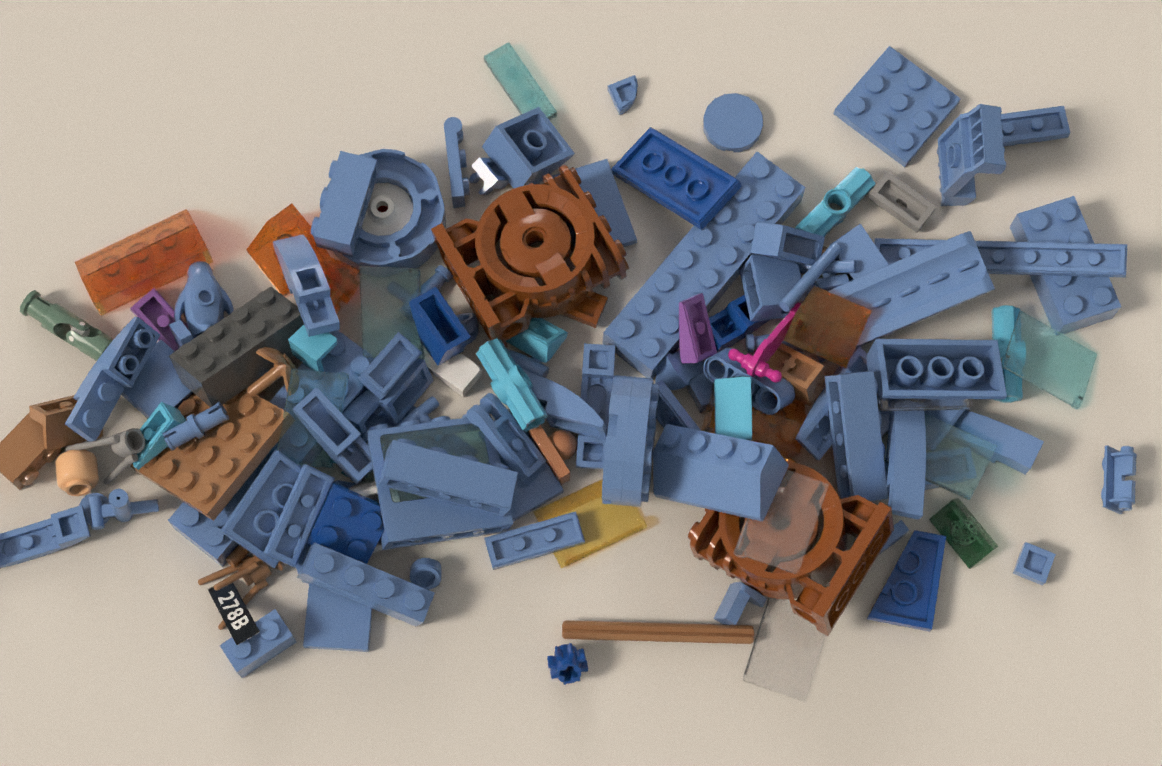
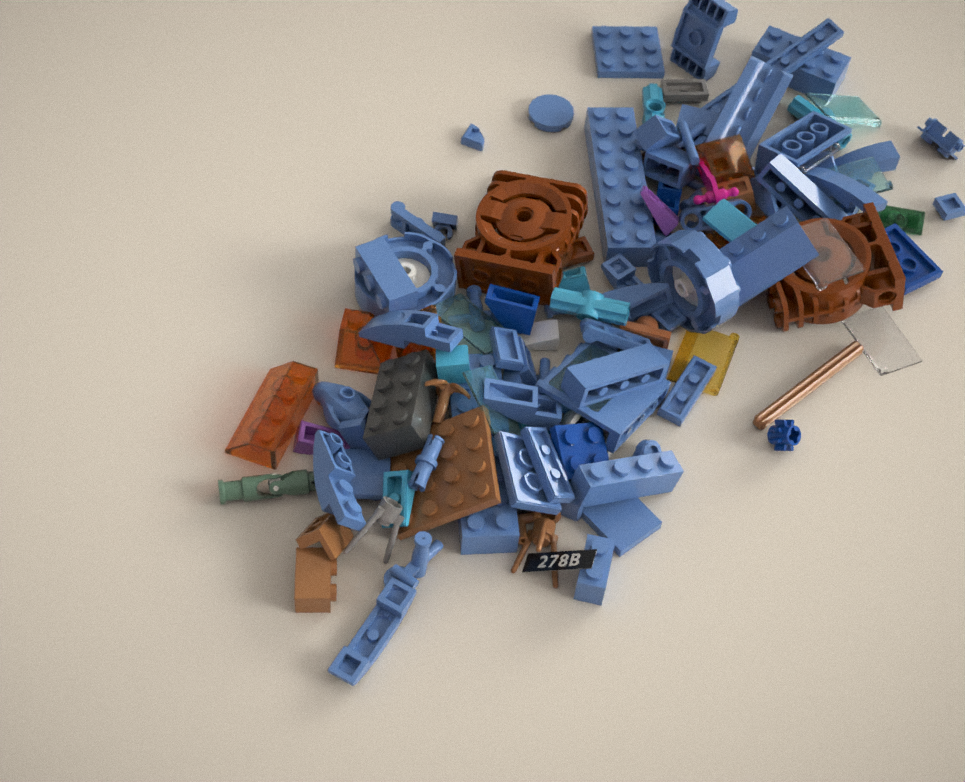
camera: 45 degrees left, 20 degrees down
(77, 472) = (363, 564): light nougat head -> none
(518, 81) = (409, 171): clear light blue tile -> none
(527, 148) = (453, 194): medium blue slope -> none
(676, 178) = (557, 149): blue tile -> none
(735, 602) = (832, 335): medium blue tile -> none

